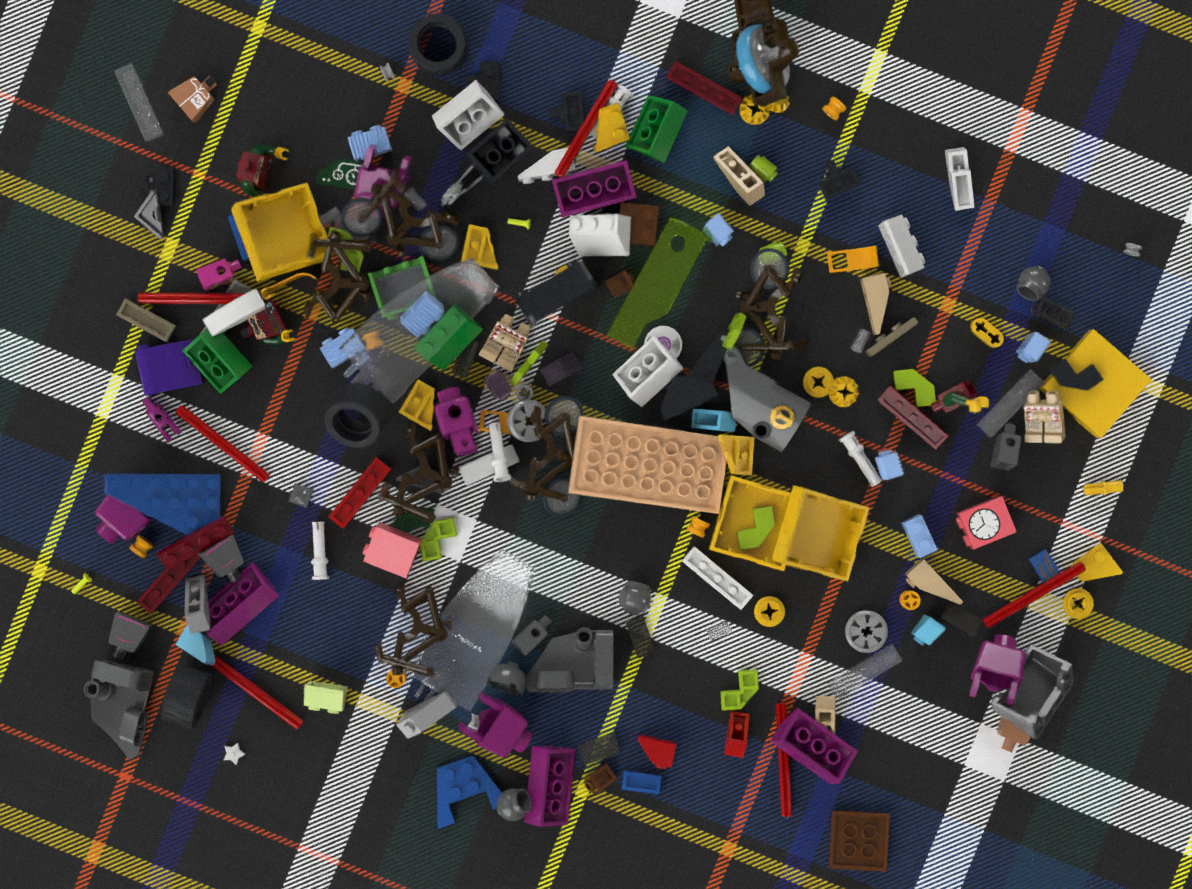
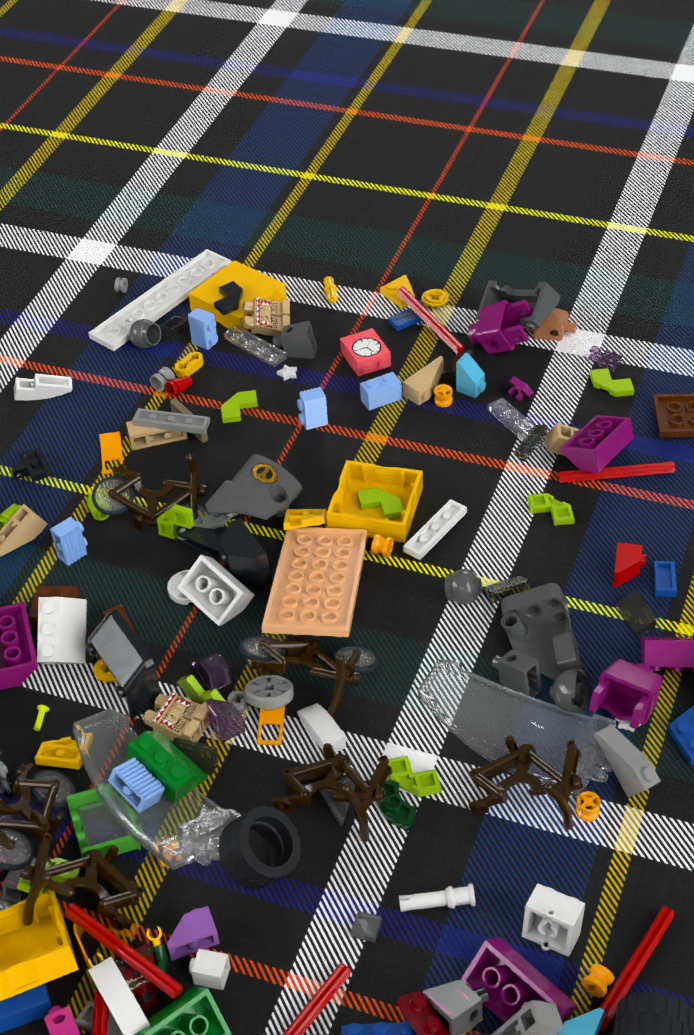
camera: 85 degrees left, 45 degrees down
(242, 663) = (598, 980): none -> light orange wheel
(268, 377) = (210, 969): none -> white brick
(277, 312) = (124, 951): none -> red axle
(286, 637) = (553, 919): none -> white brick
(299, 364) = (192, 933): none -> medium lavender slope
(325, 696) = (625, 876): yellowish green slope -> none
(331, 348) = (176, 887): light blue brick -> none
(360, 492) = (360, 857): red plate -> none
(391, 549) = (429, 814): coral brick -> none
(419, 404) = (244, 798): yellow wing -> none
(459, 428) = (263, 748): magenta piece -> none
(499, 460) = (314, 707): white pin -> none
(599, 779) = (670, 608): reddish brown bracket -> none
(658, 281) = (112, 585): clear neon green piece -> none
(713, 420) = (270, 538): medium azure slope -> none
(719, 630) = (488, 521): clear pin -> none
(737, 734) = (598, 503): red slope -> none
(776, 617) = (470, 485): yellow gear -> none
(808, 381) = (229, 464): yellow gear -> none
(820, 533) = (381, 446): yellow tile -> none
(825, 681) = (531, 441): none -> clear smoke slope
(839, 384) = (247, 450): yellow gear -> none
(856, 451) = (300, 438): white pin -> none
(860, 340) = (191, 442): clear pin -> none
(872, 641) = (477, 423): light grey wheel -> none
(878, 320) = (171, 421): none -> light grey tile
(902, 245) = (101, 417): white slope -> none
(913, 417) = (266, 403): dark red plate -> none
(913, 681) = (520, 388): none -> magenta tile
(921, 766) = (602, 380): none -> lime tile
(950, 323) = (178, 385): none -> red cone
(955, 777) = (606, 360): none -> clear purple plate
(958, 396) = (247, 366): torso -> none
(964, 308) = (159, 380): none -> light grey wheel
(967, 438) = (287, 372): none -> white piece
(1104, 297) = (158, 299): none -> white plate

